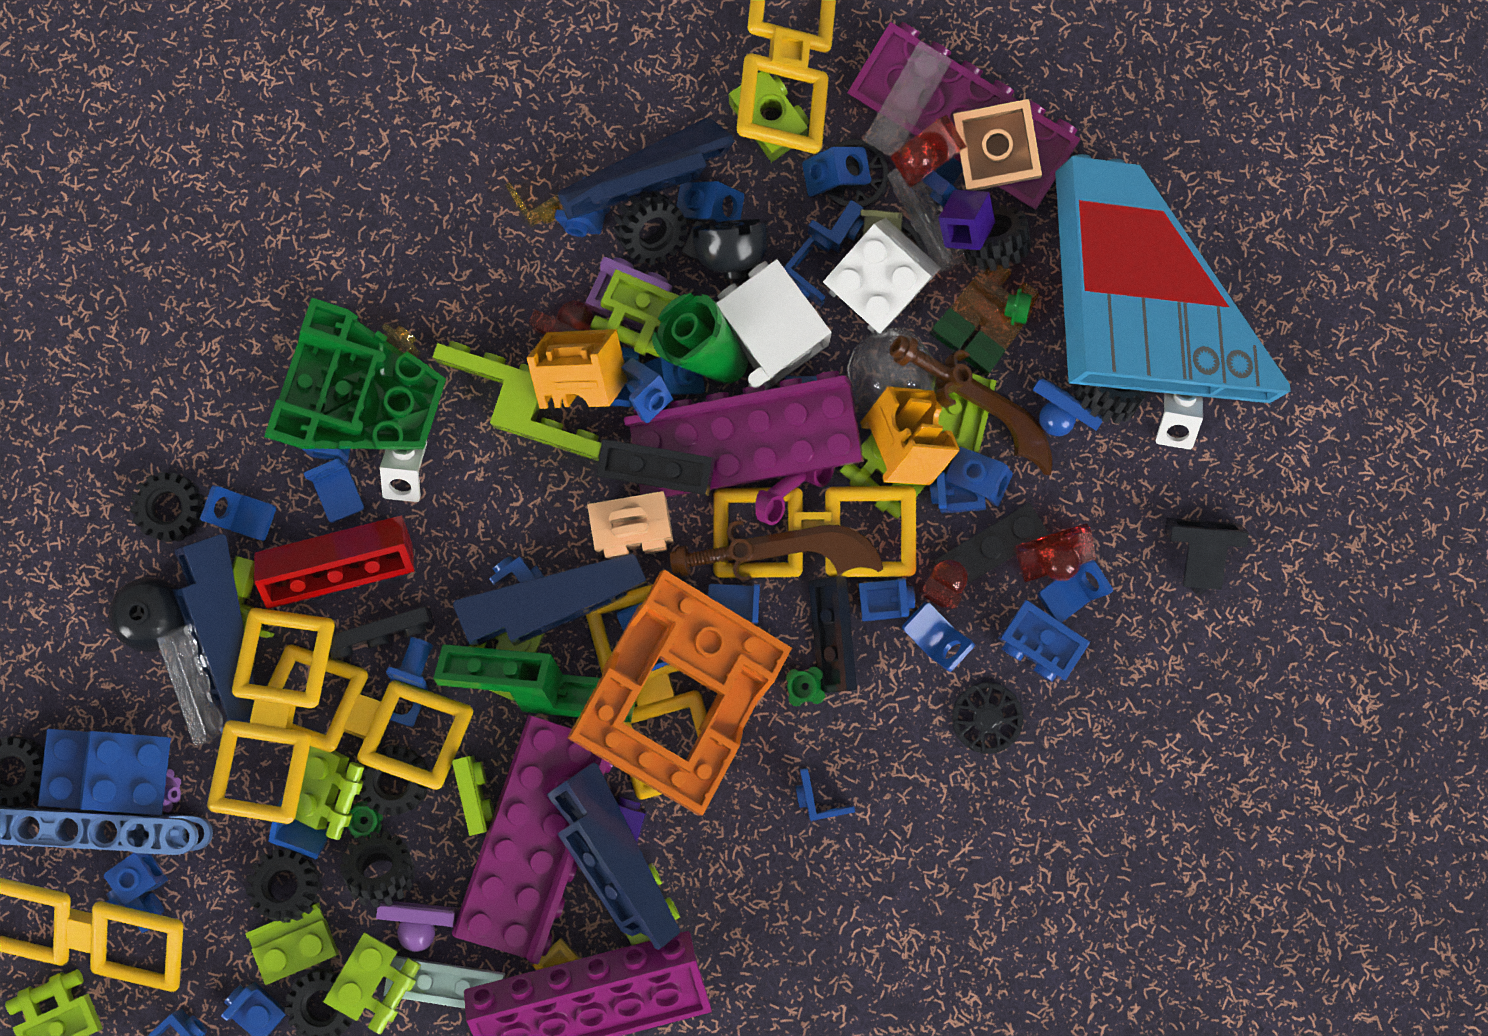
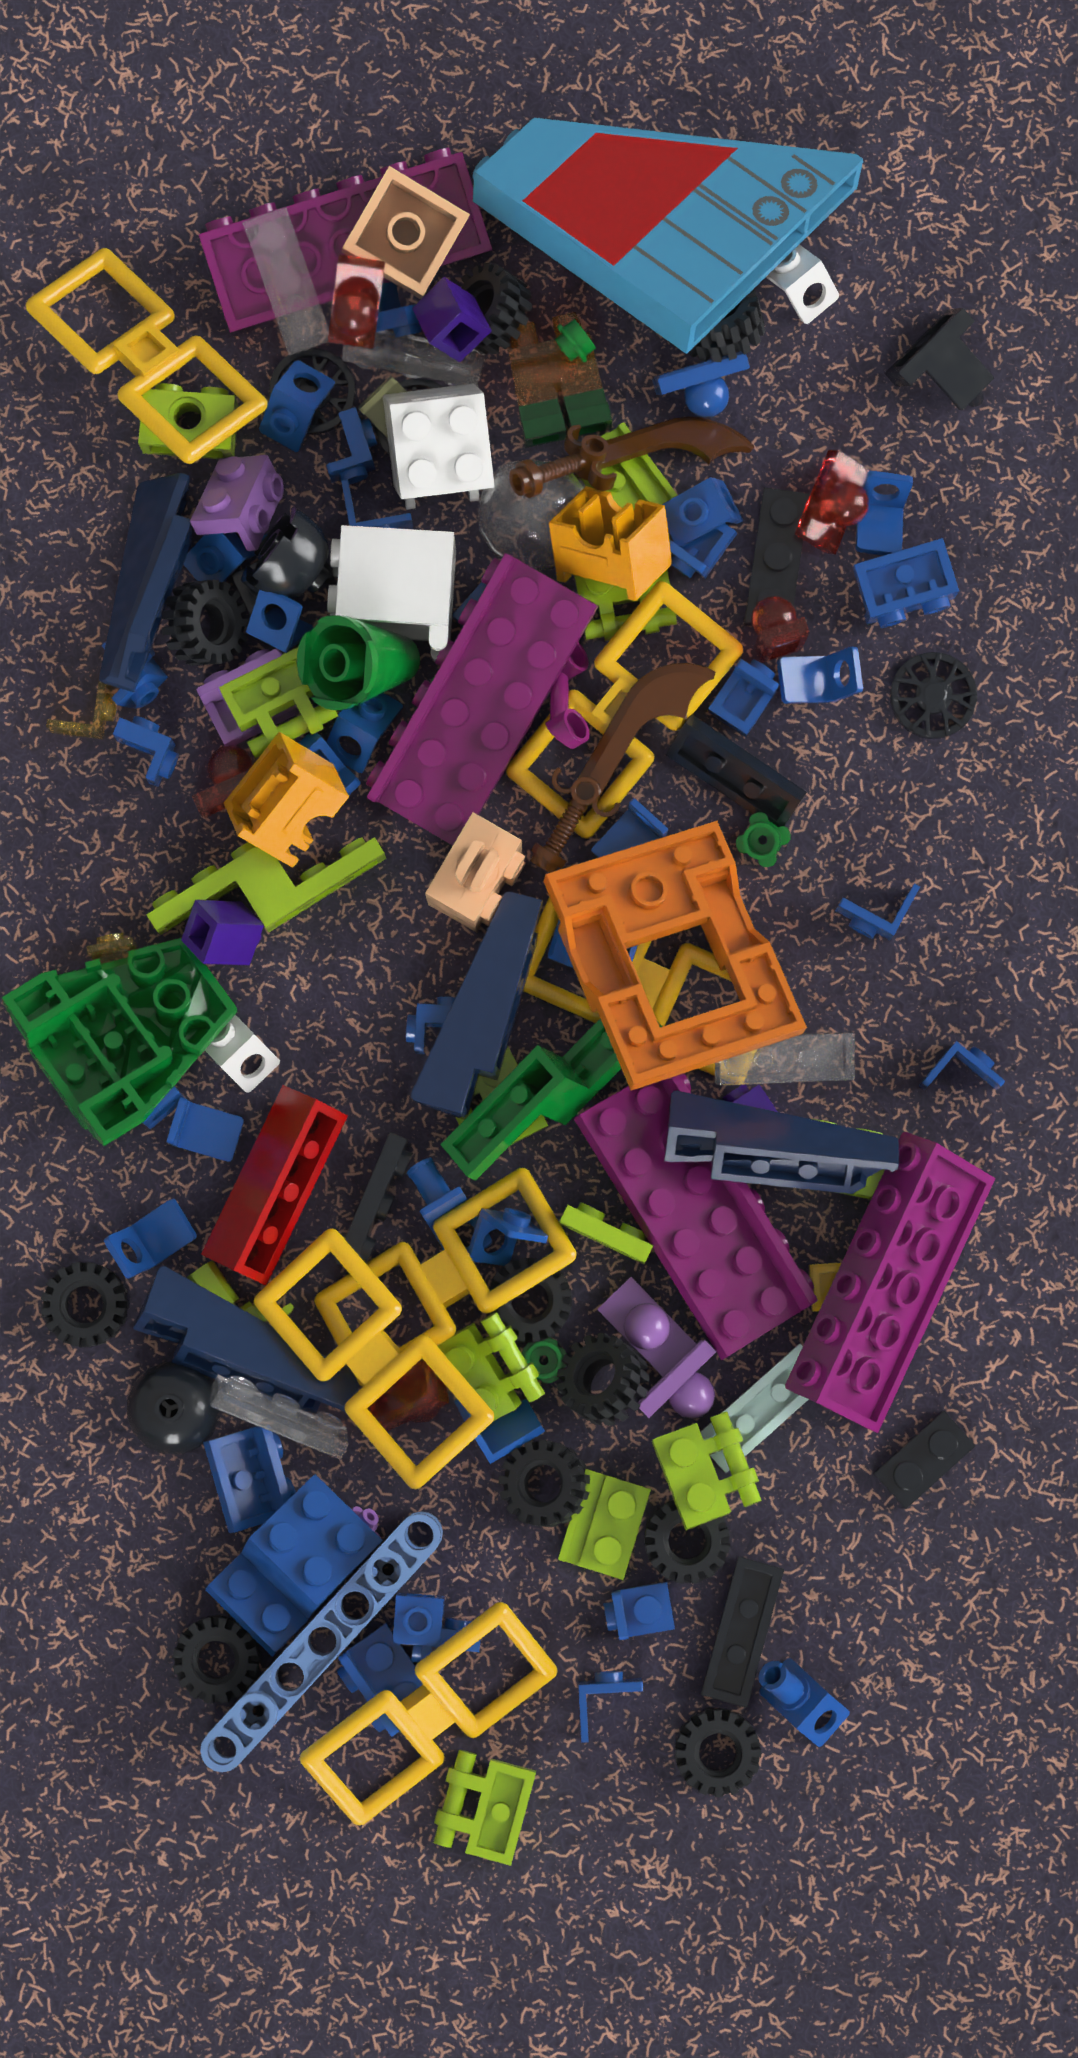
camera: 50 degrees left, 0 degrees up
(83, 878) = (378, 1666): none -> blue bracket
(139, 697) = (248, 1476): none -> blue bracket
(266, 757) = (412, 1398): none -> clear red tile
(427, 731) = (513, 1224): none -> blue bracket
(437, 867) = (646, 1326): none -> medium lavender tile
(465, 399) = (222, 932): none -> dark purple brick
(551, 249) = (144, 736): none -> blue bracket
(647, 389) = (359, 750): blue bracket -> none
(655, 467) = (440, 805): black plate -> none
(687, 275) = (277, 627): none -> blue bracket
(687, 830) = (796, 1059): none -> clear plate
(746, 185) = (239, 499): none -> medium lavender bracket
(776, 935) = (974, 1059): none -> blue bracket

